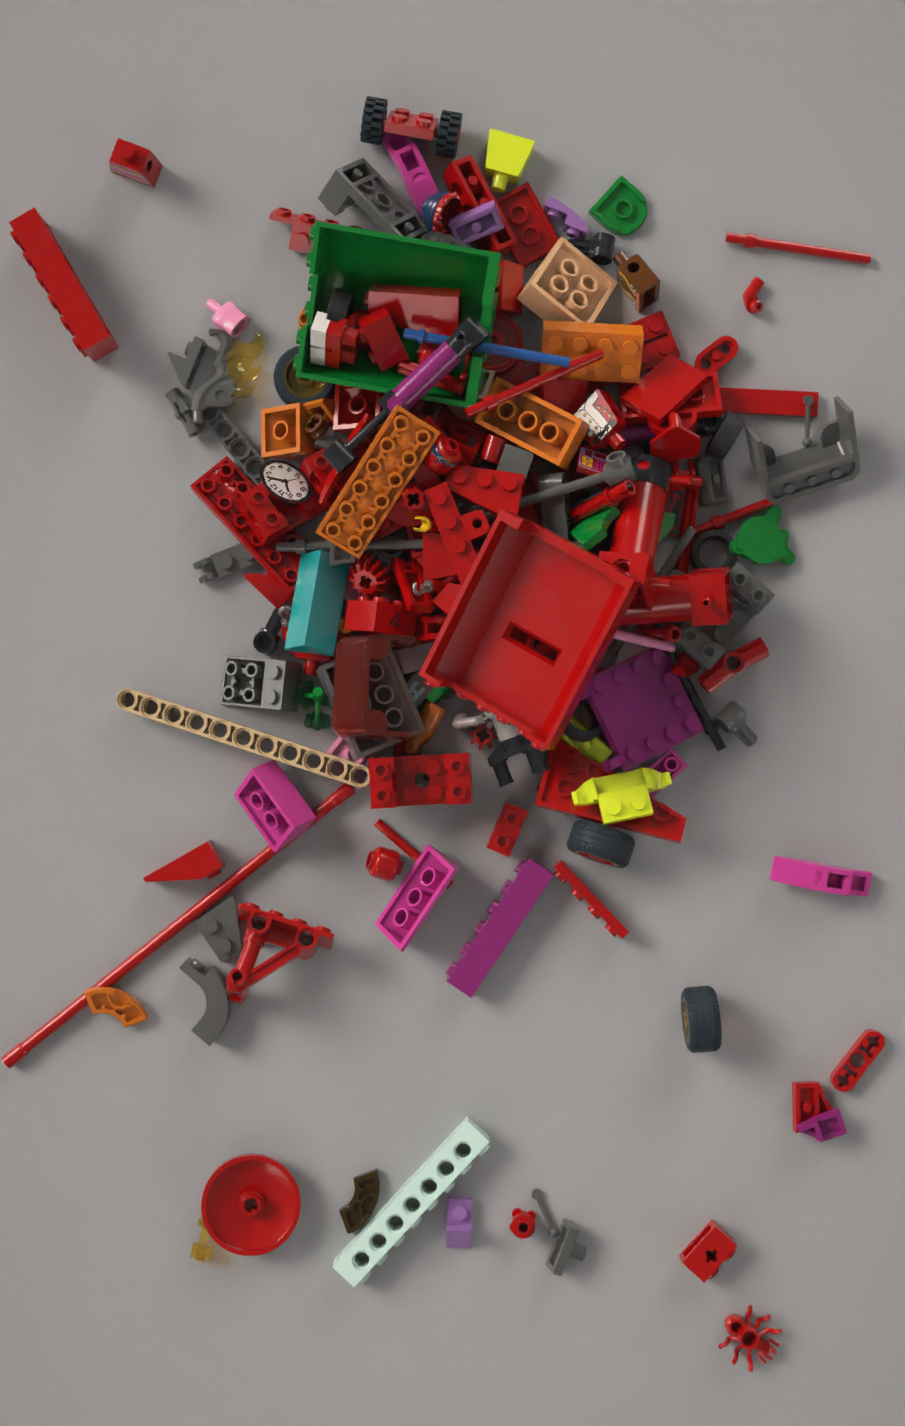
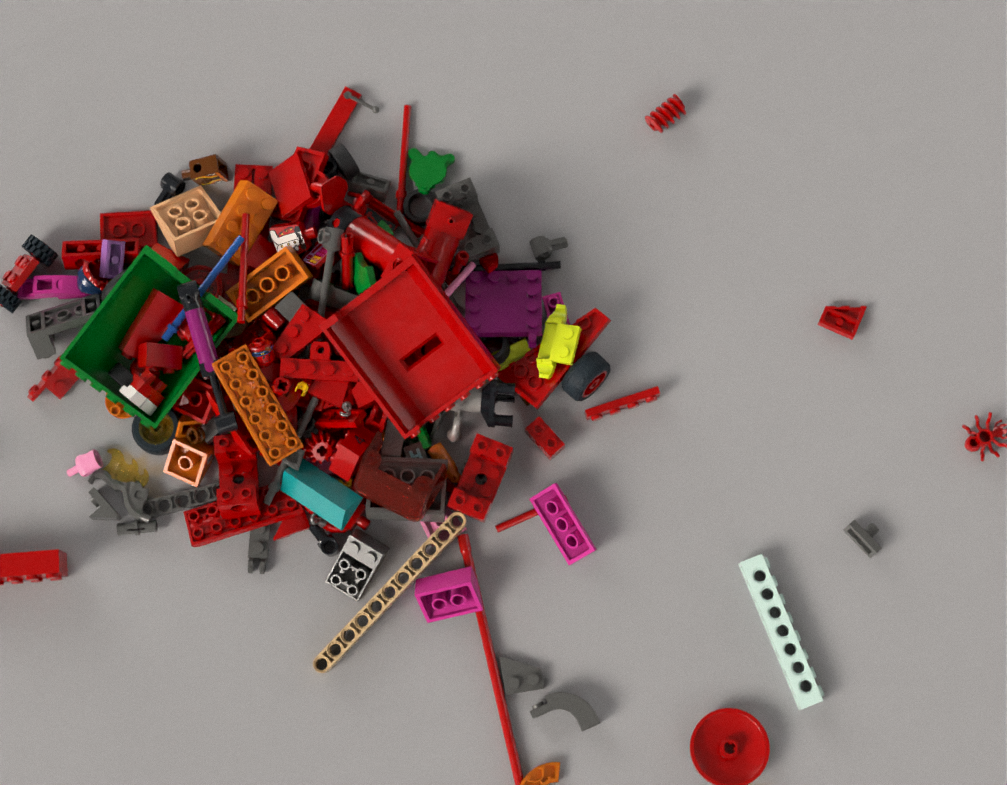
camera: 60 degrees left, 10 degrees down
(191, 866) = (464, 672): red slope -> none
(278, 932) = (548, 622): red plate -> none
(285, 481) = (223, 474): sticker -> none
(308, 696) = (384, 531): clear green plant -> none
(363, 1201) = (765, 667): dark brown tile -> none
(384, 863) = (528, 536): red head -> none
(459, 1222) = (813, 606): medium lavender slope -> none
(486, 741) = (471, 430): red gear -> none
(499, 927) = (612, 476): magenta brick -> none
(506, 158) = (76, 220): neon yellow torso -> none
(523, 1217) = (826, 561): red brick -> none
(536, 1194) = (817, 541): dark grey hinge -> none
(573, 224) = (145, 195): medium lavender slope -> none
(620, 208) = (151, 159): green tile -> none
(701, 1019) = (742, 364): black wheel -> none
(710, 1238) = (910, 447): red brick -> none
(714, 356) = (286, 143): red plate -> none
(745, 656) = (503, 219): red piece -> none
(751, 240) = (219, 83): red bar -> none
(751, 298) = (257, 101): red arm -> none
(809, 468) = (394, 116): dark grey windscreen -> none
(820, 876) = (681, 238): dark pink slope -> none
(824, 1126) = (857, 315): magenta slope -> none
(846, 1060) = (833, 283): red beam -> none

